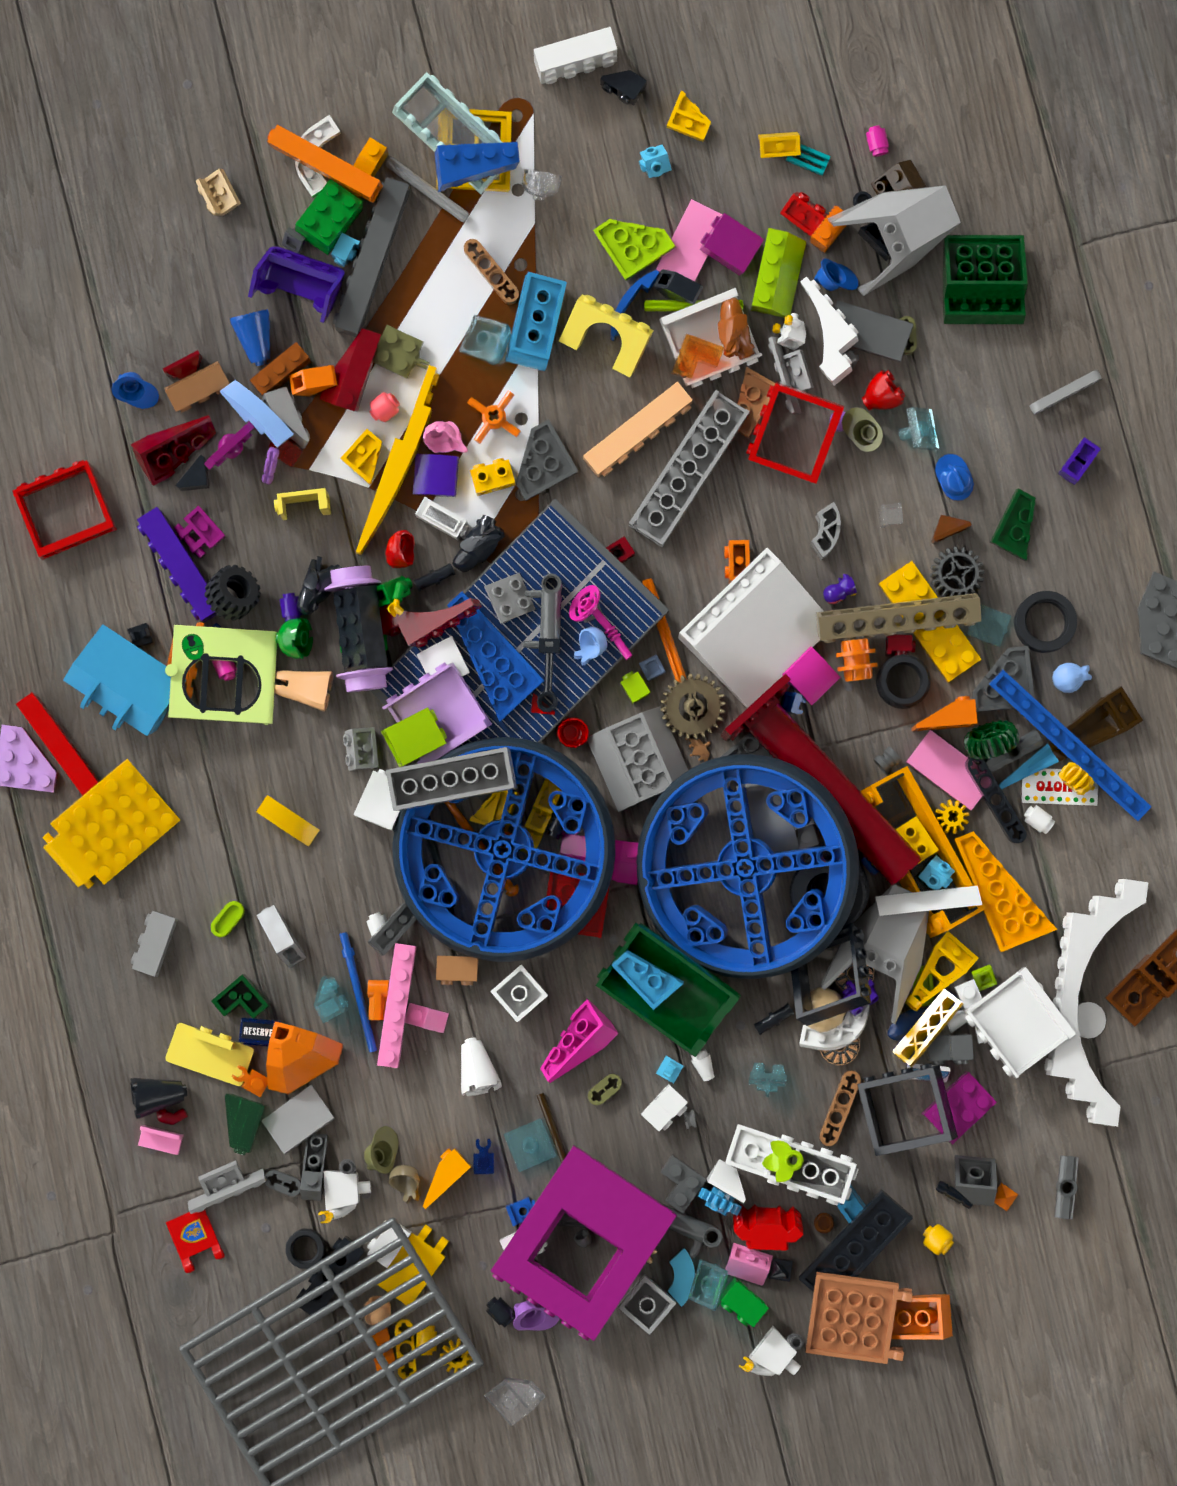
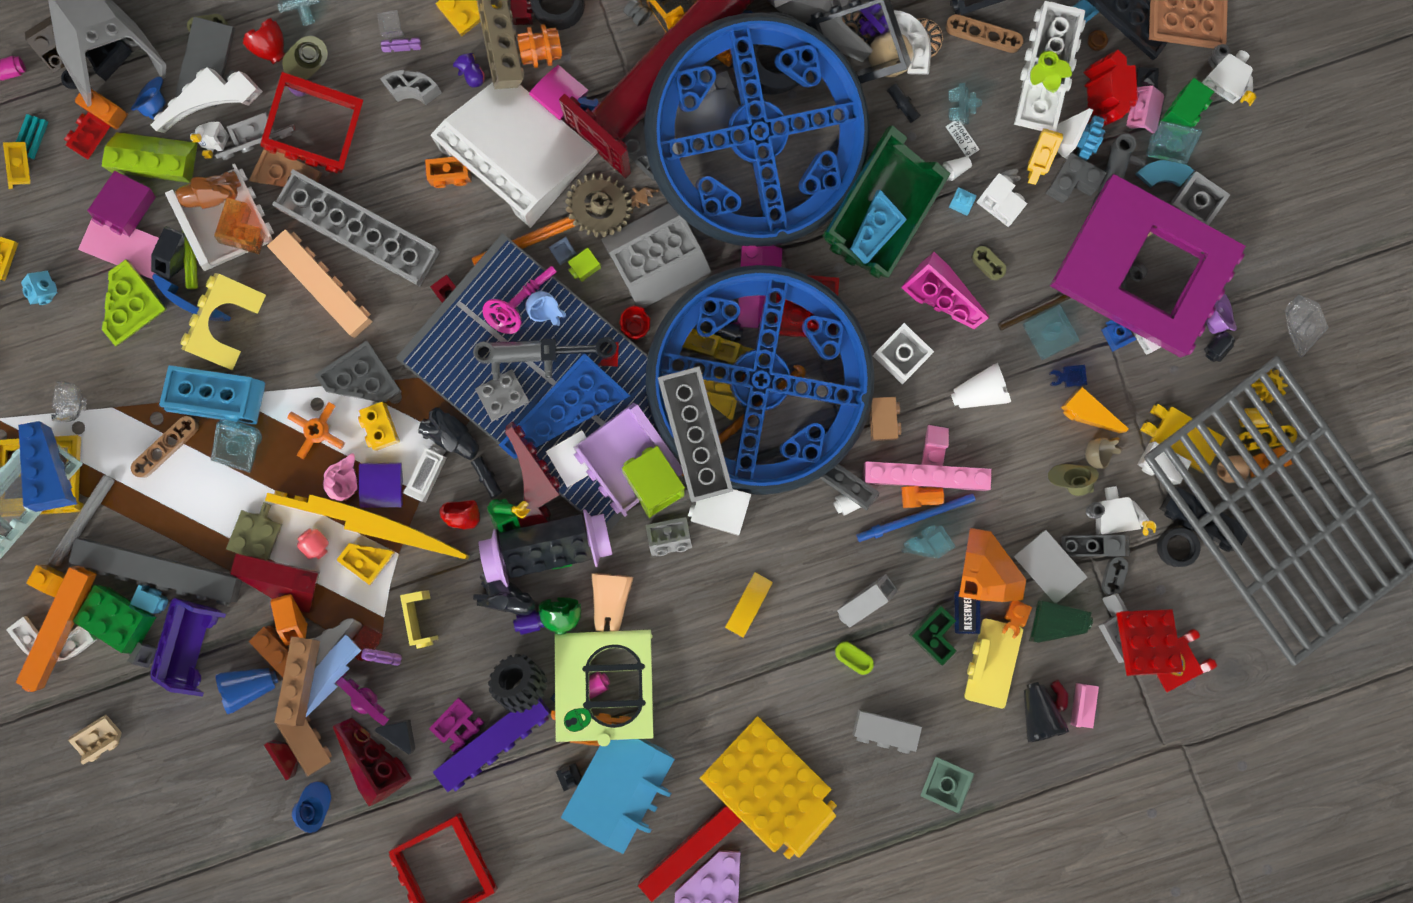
camera: 95 degrees left, 0 degrees up
(97, 997) = (947, 784): none -> sand green slope
(214, 1207) = (1149, 642): none -> red plate
(252, 386) = (297, 681): none -> medium nougat brick
(706, 1151) = (1043, 154): none -> yellow hinge
(734, 1076) = (962, 138): none -> white sticker
(872, 523) = (401, 44): none -> medium lavender axle

